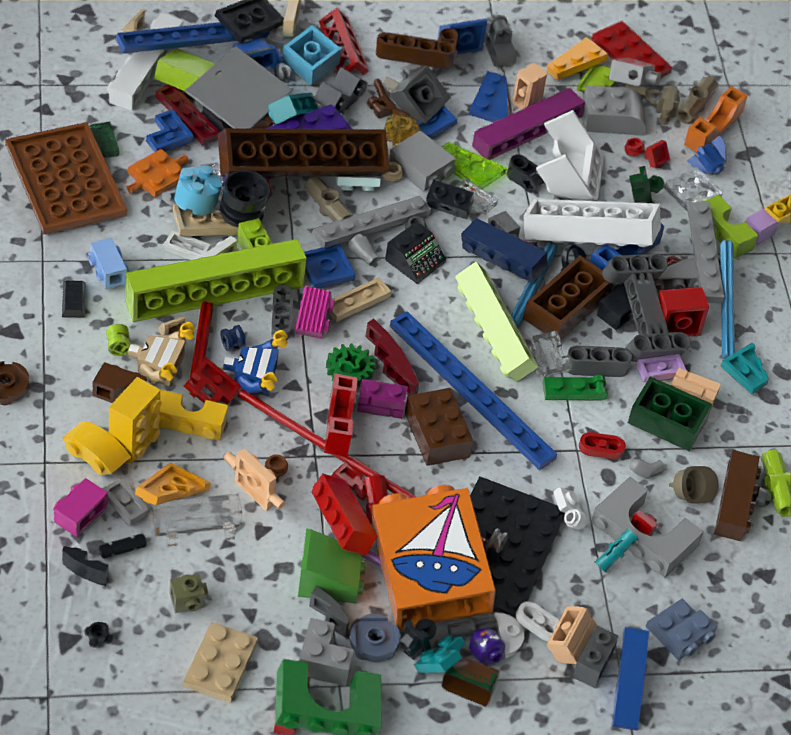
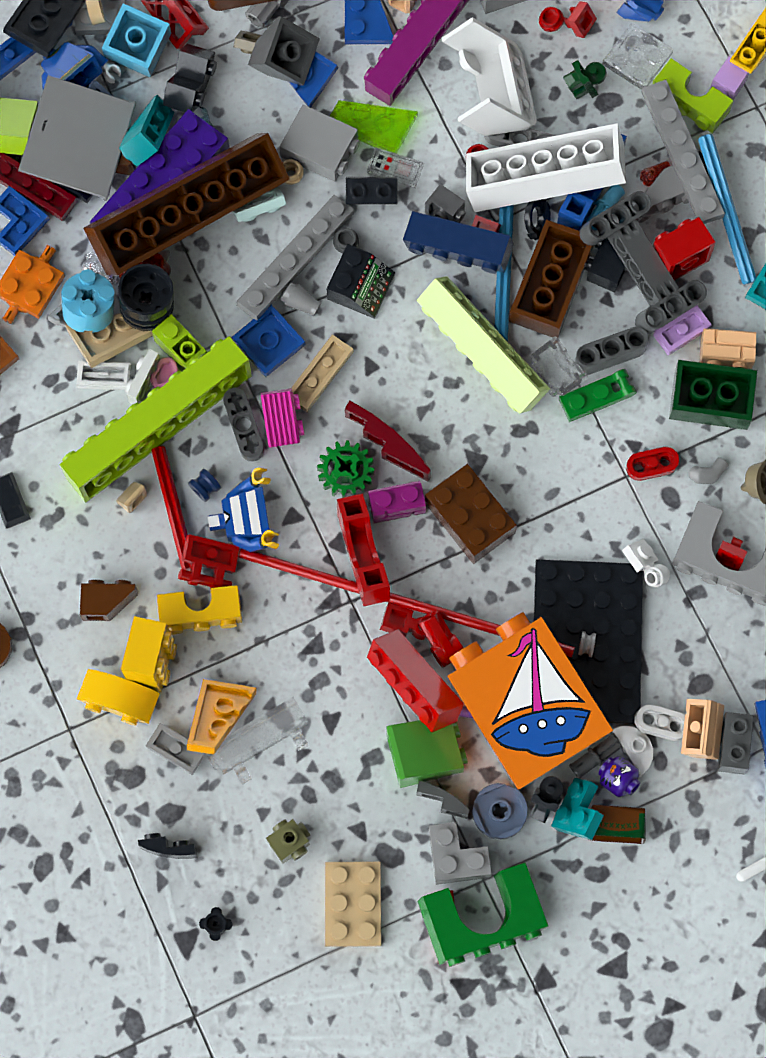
camera: 10 degrees left, 25 degrees up
(80, 507) = (132, 779): dark pink brick -> none
(108, 263) = (22, 434): light blue brick -> none
(118, 339) = (82, 540): lime wheel -> none
(122, 545) = (195, 804): black axle -> none
(162, 355) = (137, 544): torso -> none
(255, 479) = (311, 674): light nougat plate -> none
(277, 465) = (316, 635): dark orange plate -> none
(327, 199) = (226, 239): dark tan piece -> none
(383, 105) = (233, 74): reddish brown piece -> none
(400, 128) = (269, 102): clear yellow gear -> none
(473, 390) = (488, 445): blue plate -> none
(523, 173) = (444, 112): black piece -> none
(616, 550) = (714, 601): teal pin -> none

